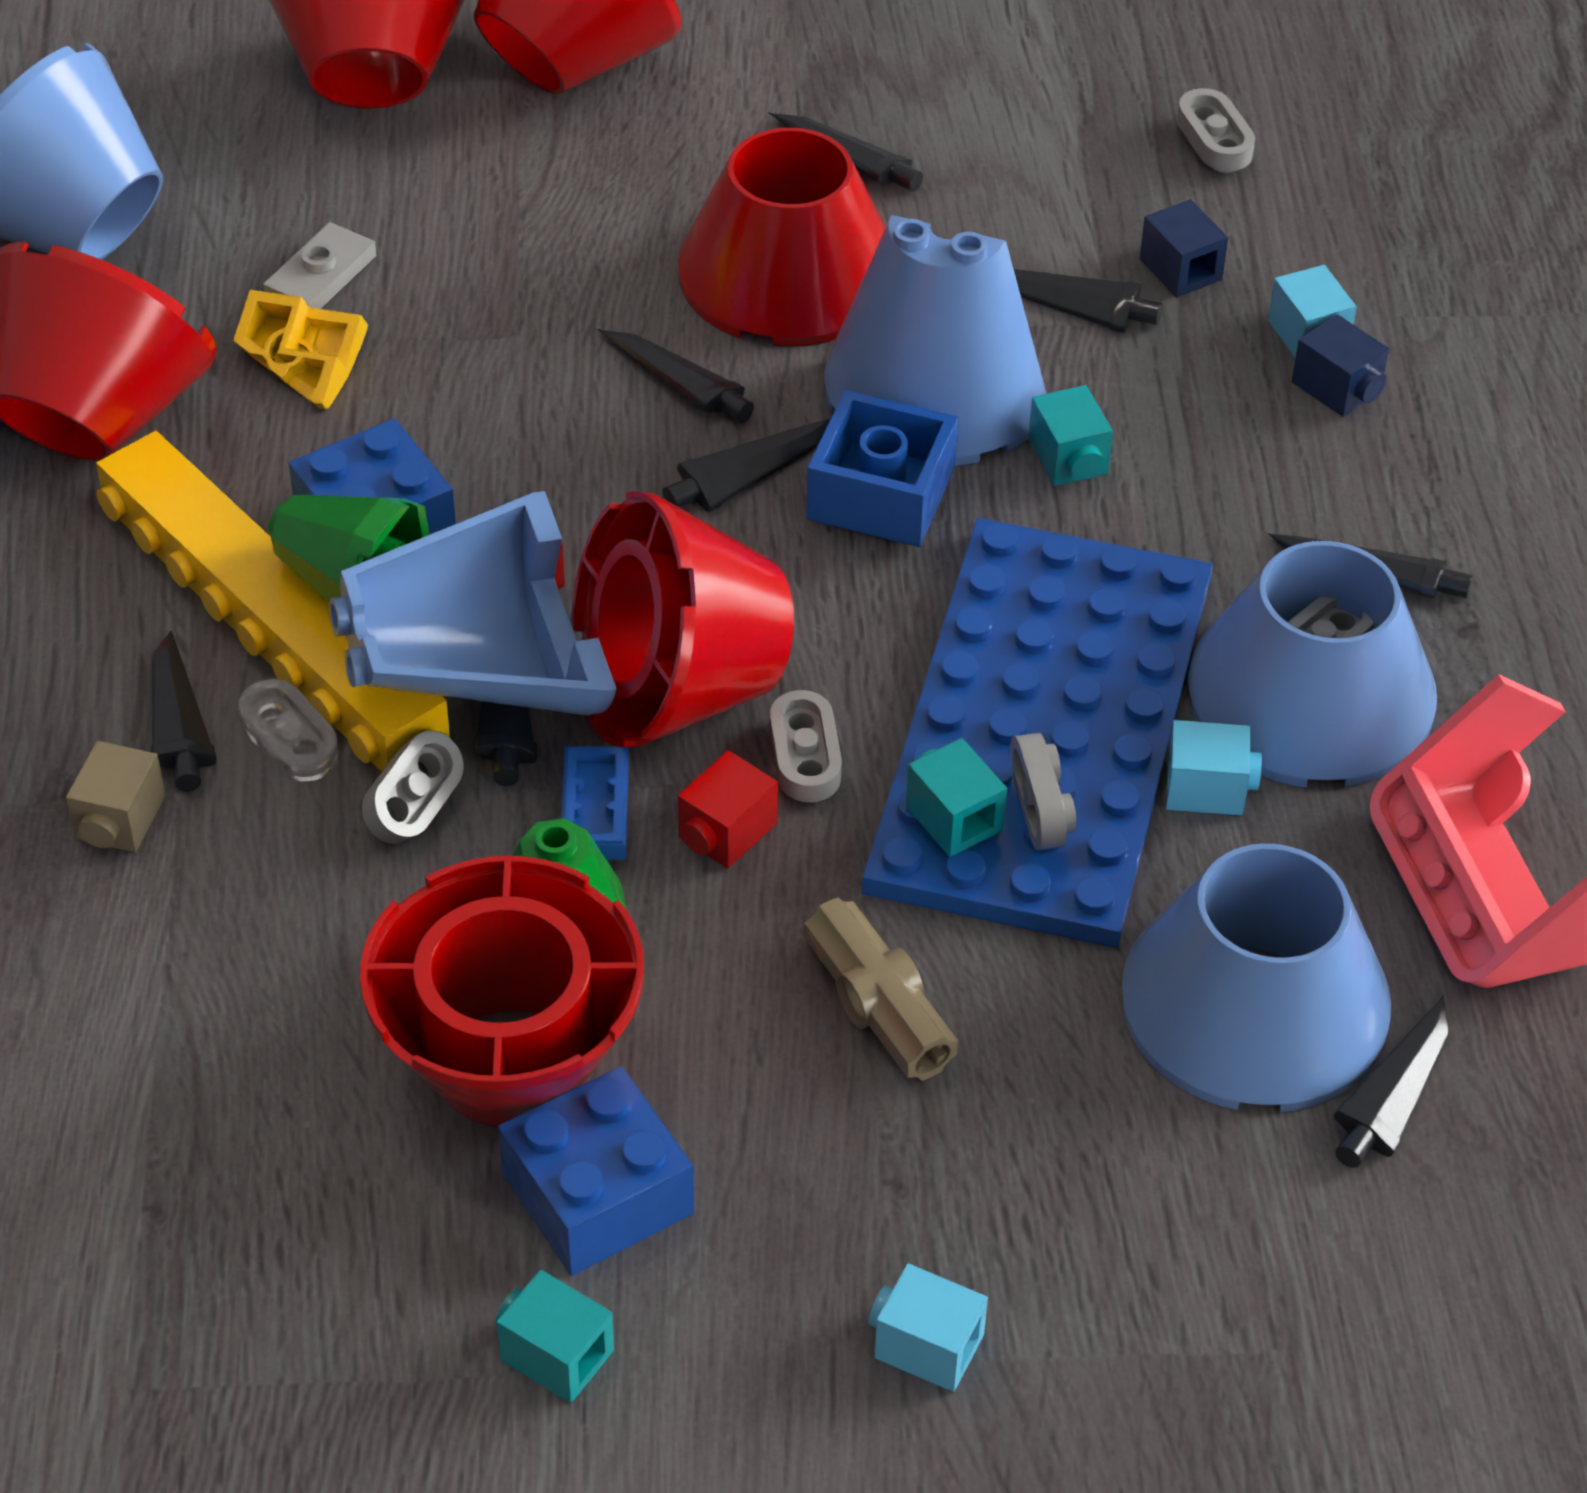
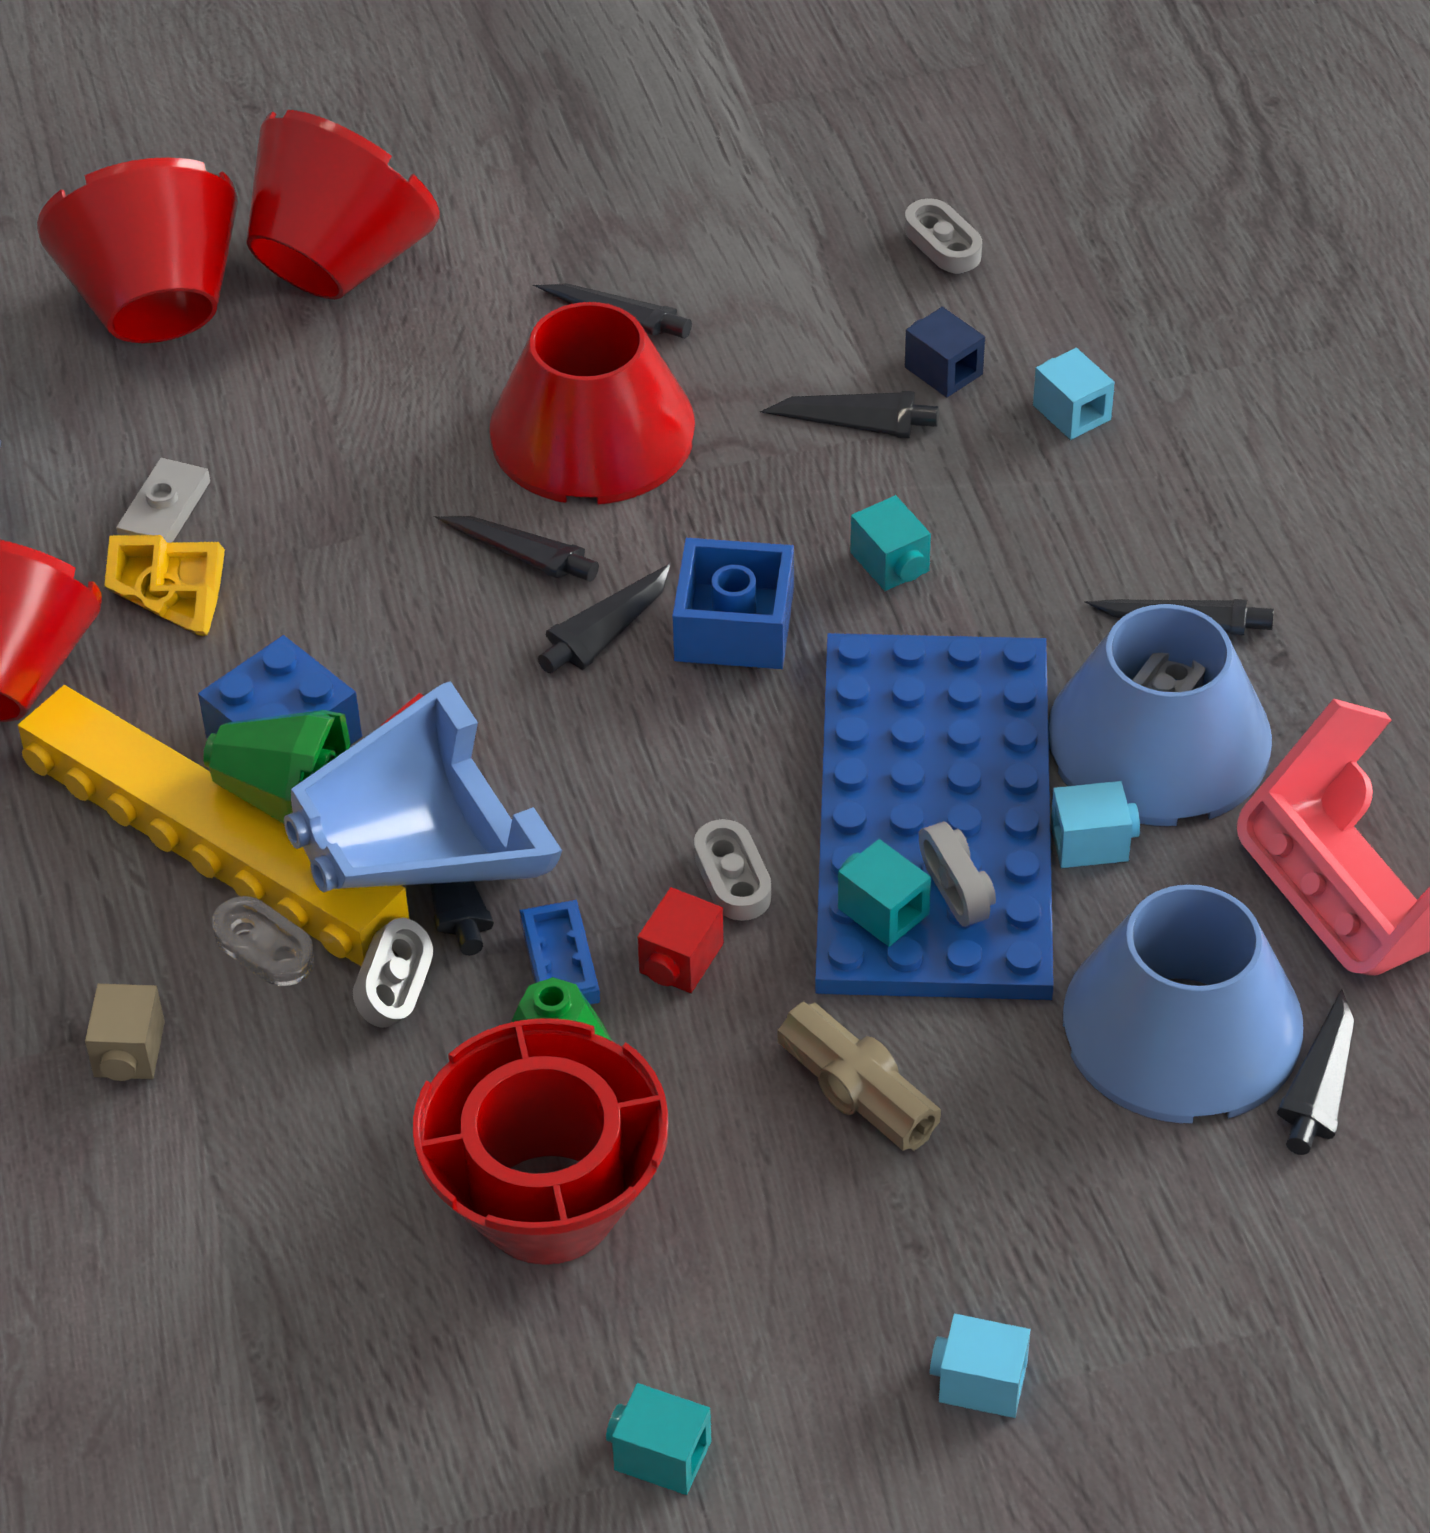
camera: 10 degrees left, 0 degrees up
(176, 720) = (155, 948): black bar -> none
(596, 1170) = (657, 1285): blue brick -> none
(680, 618) = (601, 772): red cone -> none
(941, 333) = (756, 472): medium blue cone -> none
(1340, 365) = (1111, 437): dark blue brick -> none

